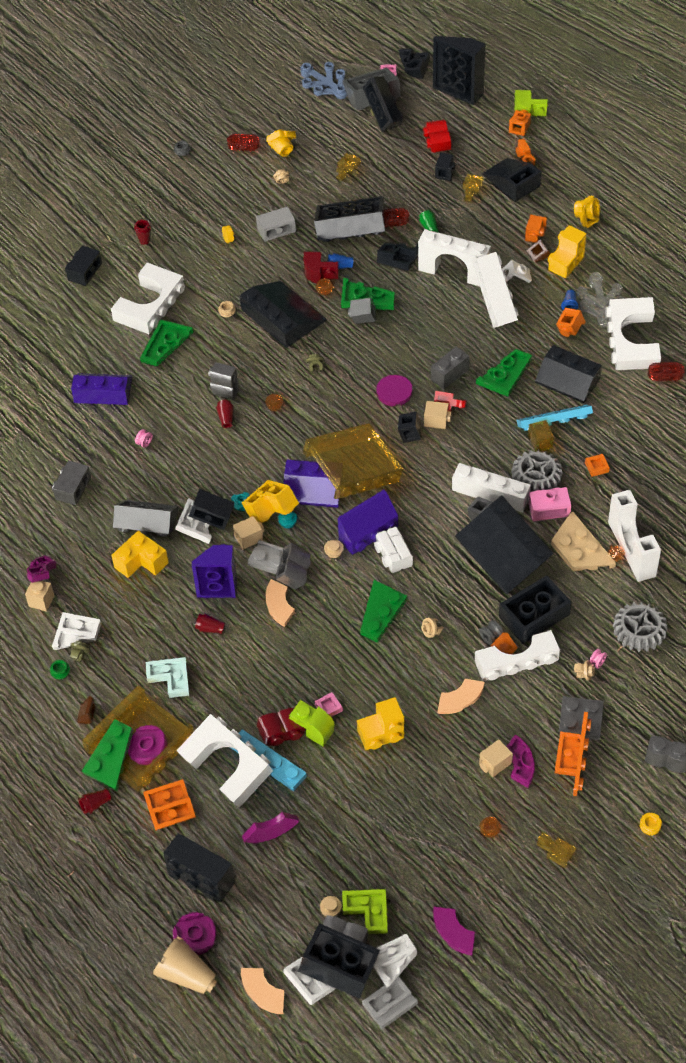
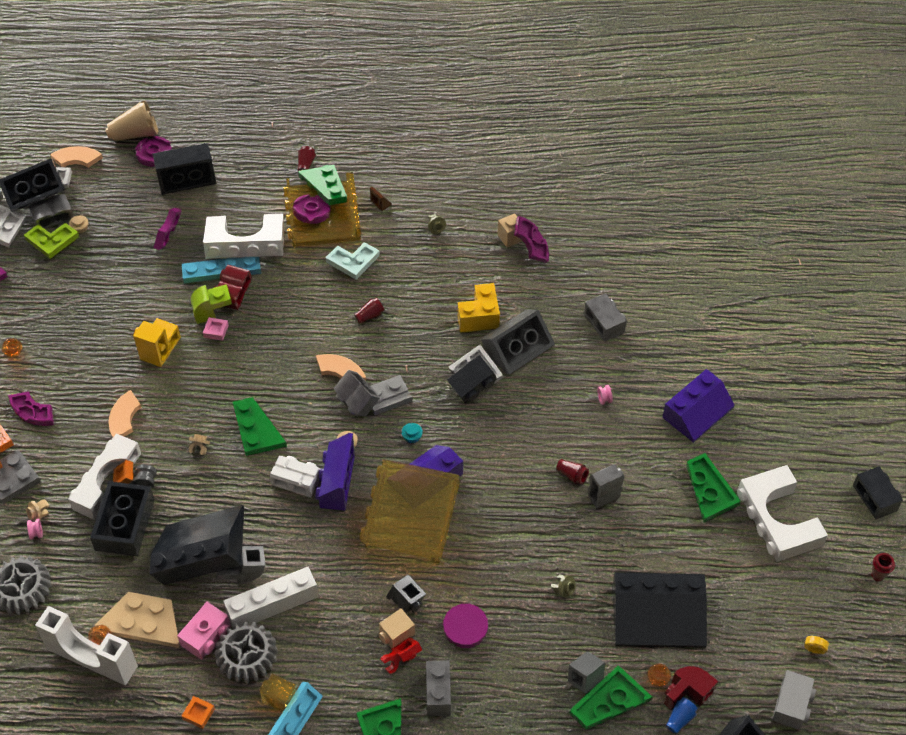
camera: 130 degrees right, 0 degrees up
(59, 669) = (433, 206): green plate -> none
(75, 628) = (456, 234): white wing -> none
(169, 804) = (255, 196): orange slope -> none
(215, 572) = (394, 328): dark purple slope -> none
(227, 309) = (708, 567): tan plate -> none
(238, 499) = (464, 419): teal plate -> none
(248, 532) = (425, 393): tan brick -> none
(268, 499) = (434, 422): yellow brick -> none
(274, 402) = (550, 519): clear orange plate -> none
(495, 758) = (49, 389): tan brick -> none

